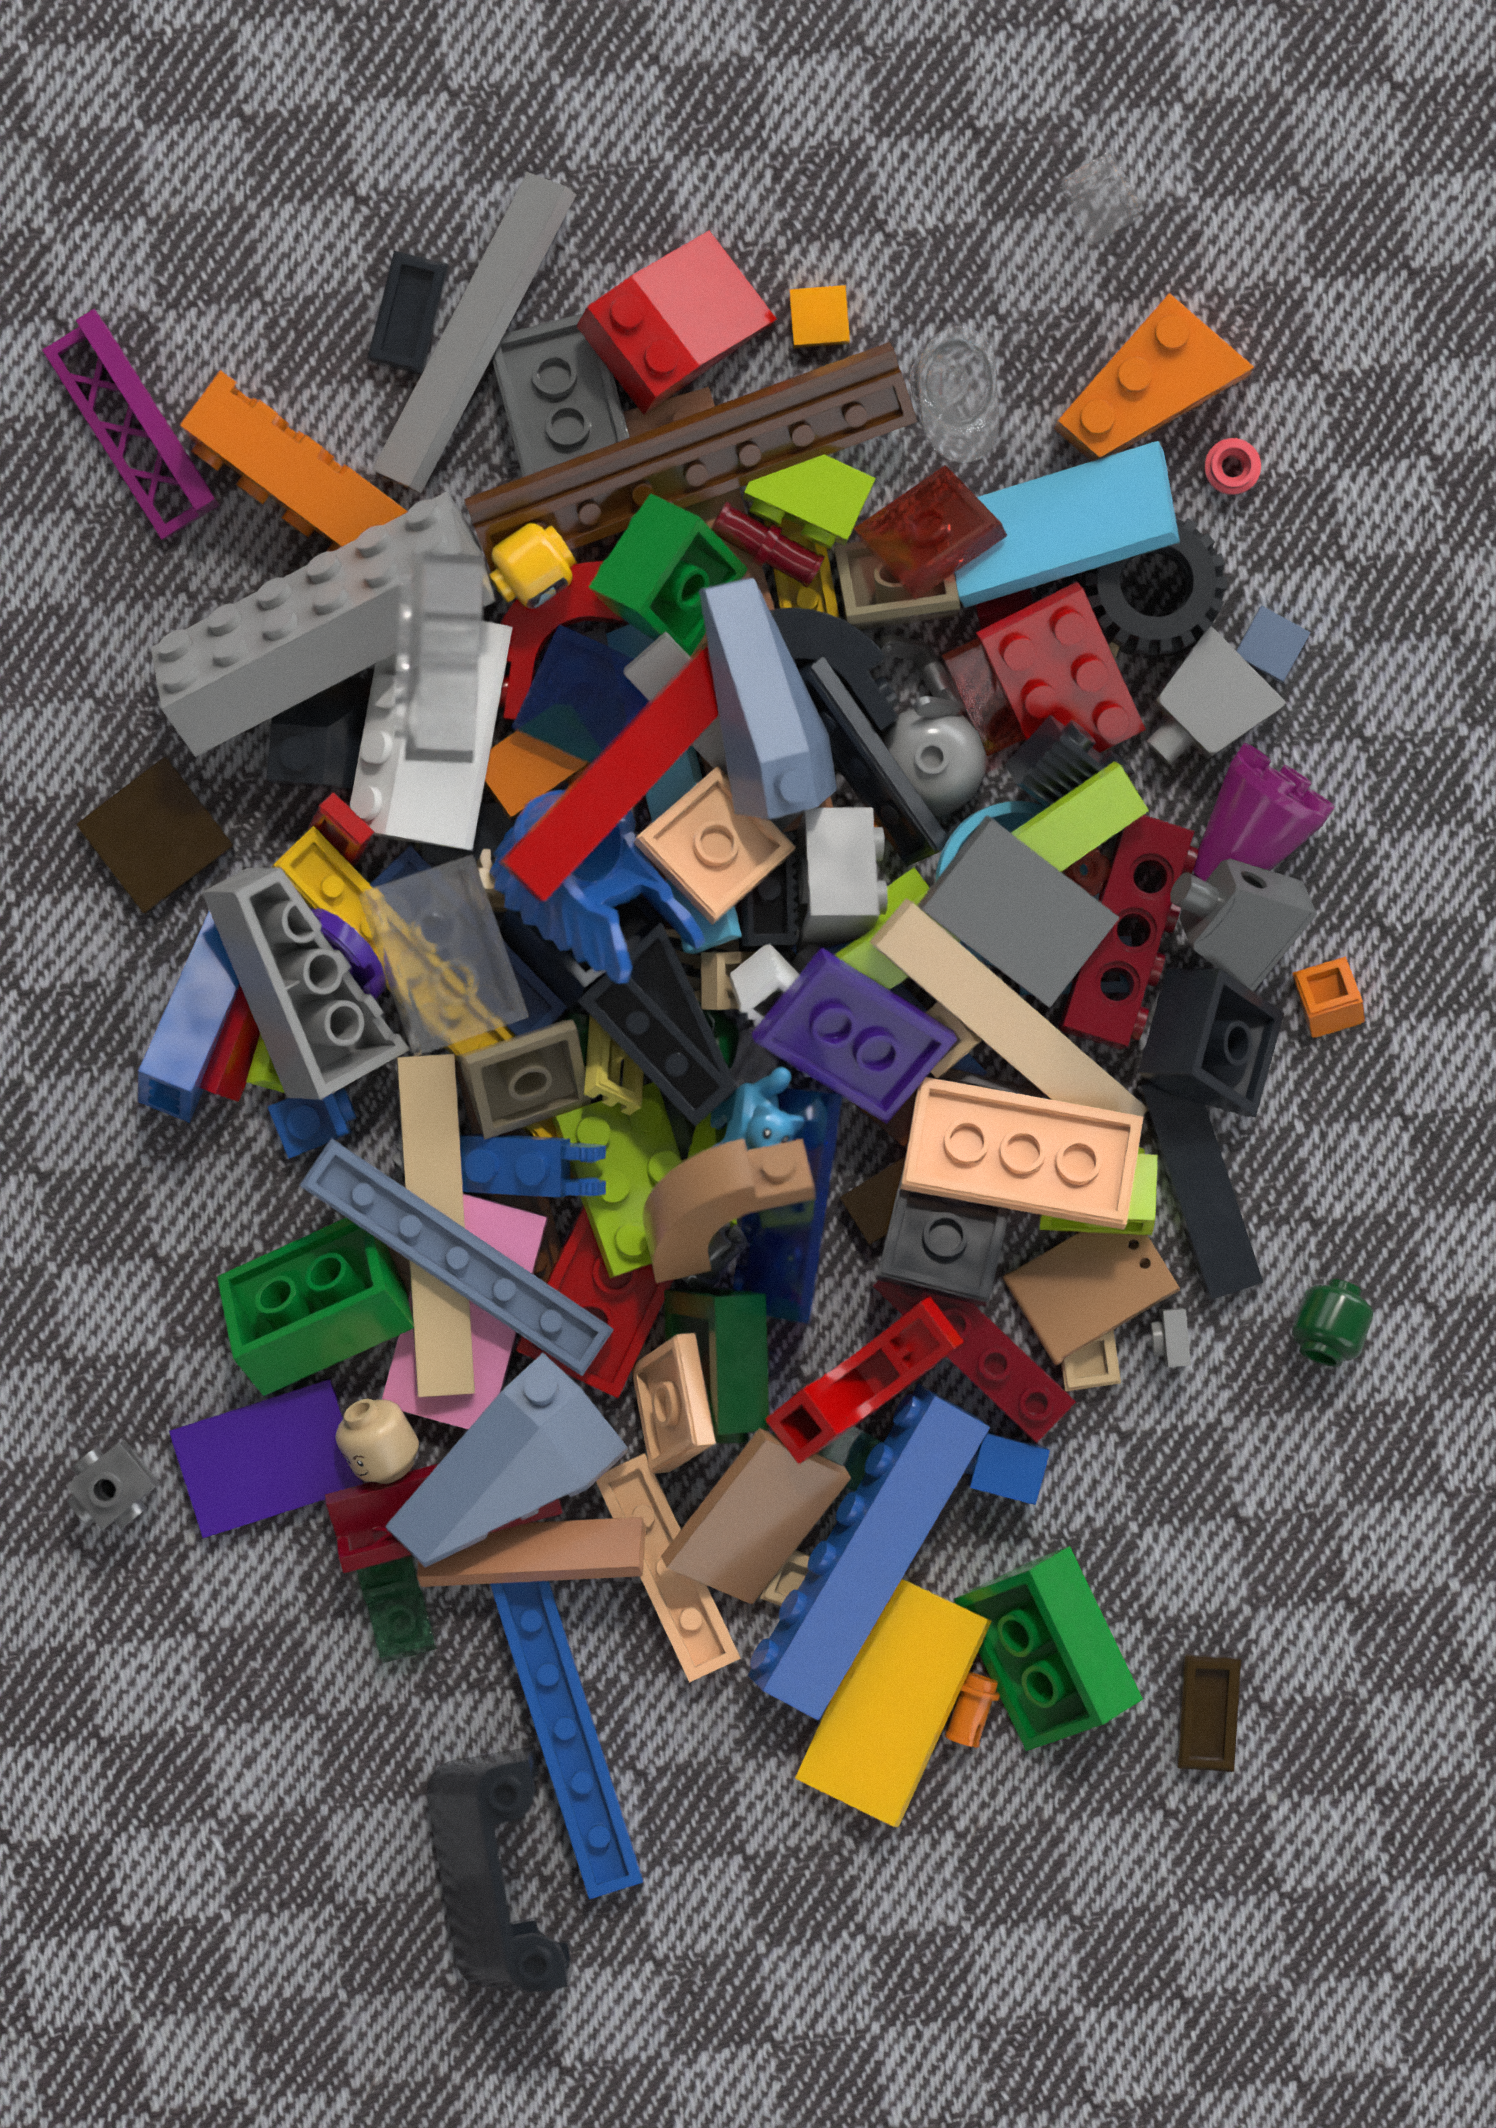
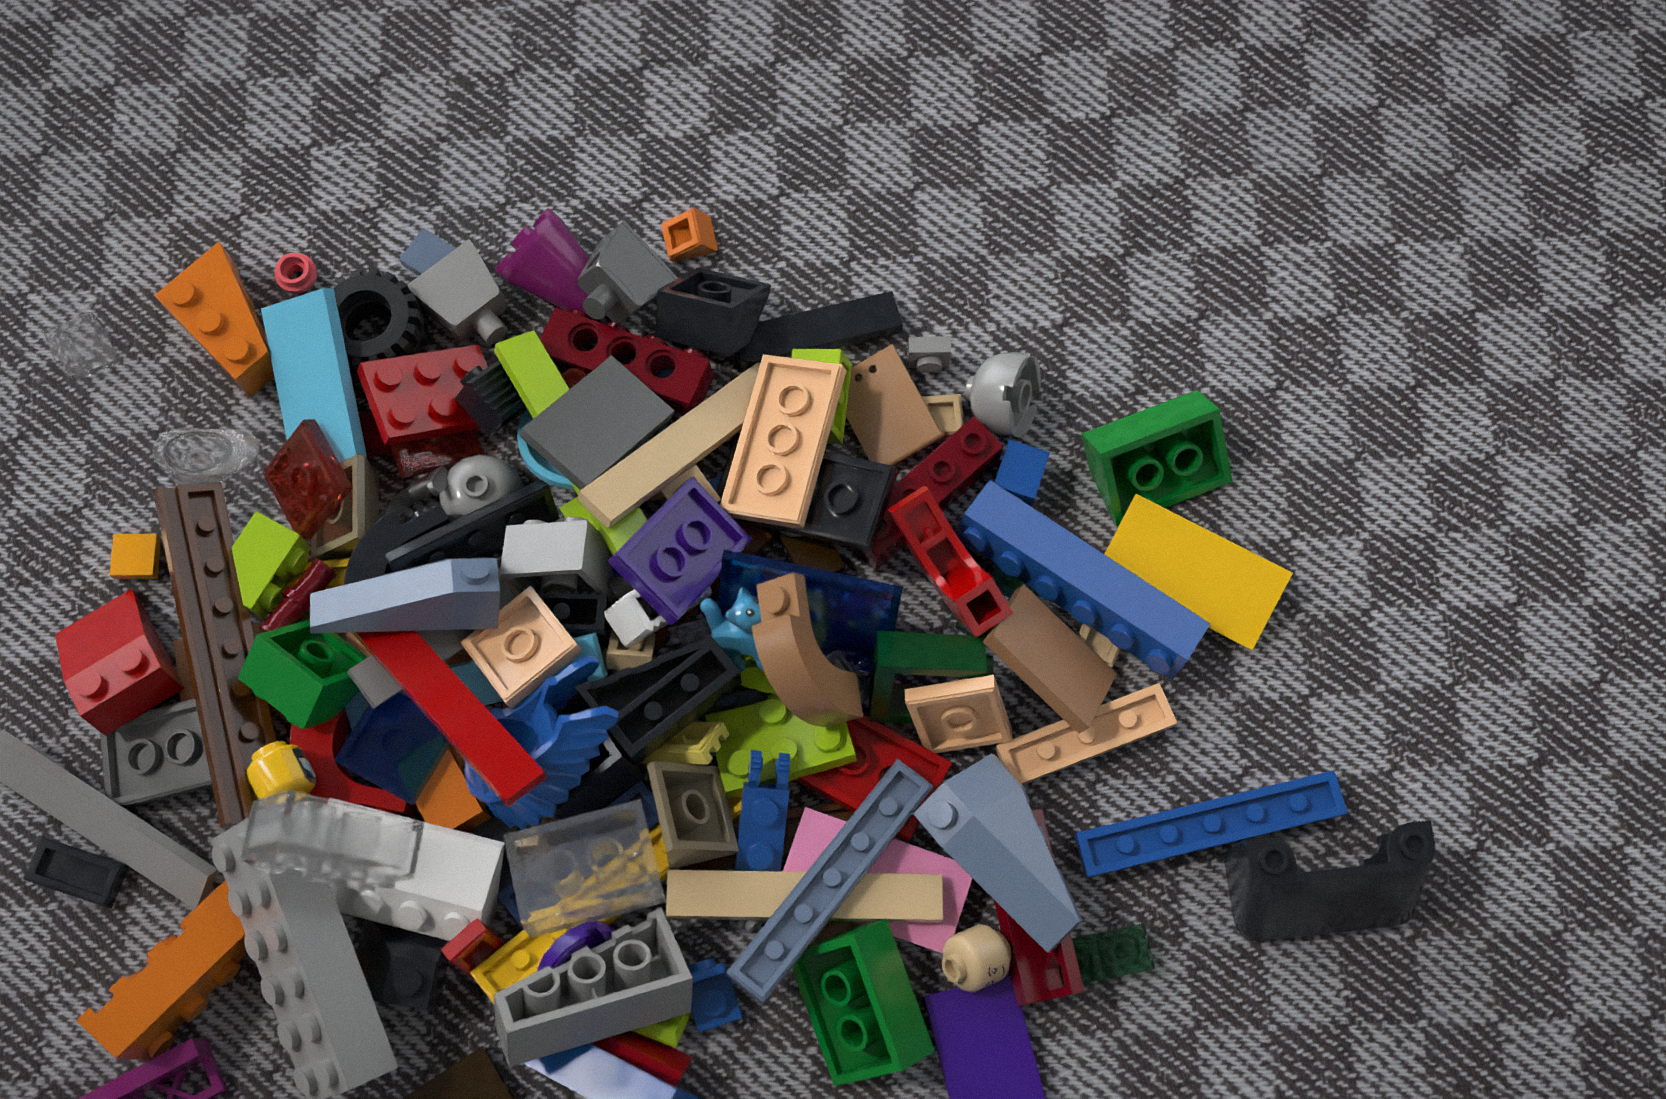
camera: 85 degrees left, 15 degrees down
(546, 1554) = (1073, 825): nougat tile -> none
(972, 1710) = (1203, 514): orange pin -> none
(1118, 1439) = (1003, 393): none -> light grey cylinder
(1208, 1712) = (1206, 351): dark brown tile -> none
(1332, 1323) = (925, 244): dark green head -> none

